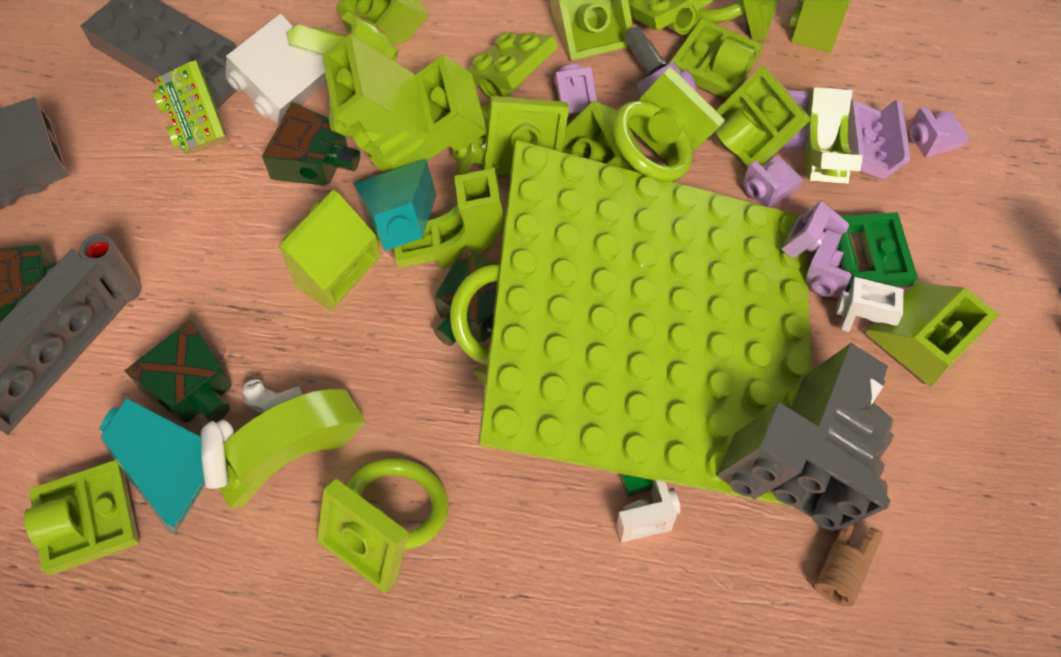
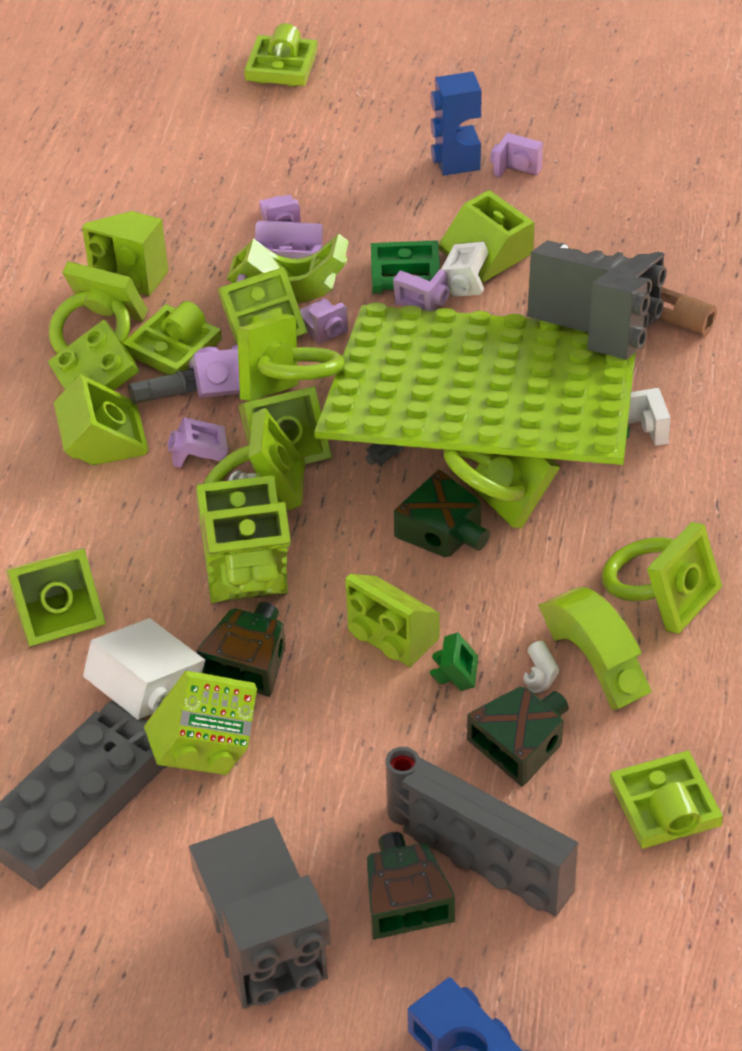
camera: 85 degrees left, 15 degrees down
(156, 458) = (618, 730): teal slope -> none
(213, 453) = (611, 672): white arm -> none
(278, 320) = (456, 662): none -> green tile
(321, 40) = (125, 600): lime piece -> none
(398, 203) = (330, 555): teal slope -> none
(471, 223) = (372, 509): lime arch -> none
(510, 62) = (158, 485): lime plate -> none
(810, 229) = (392, 289): lavender bracket -> none

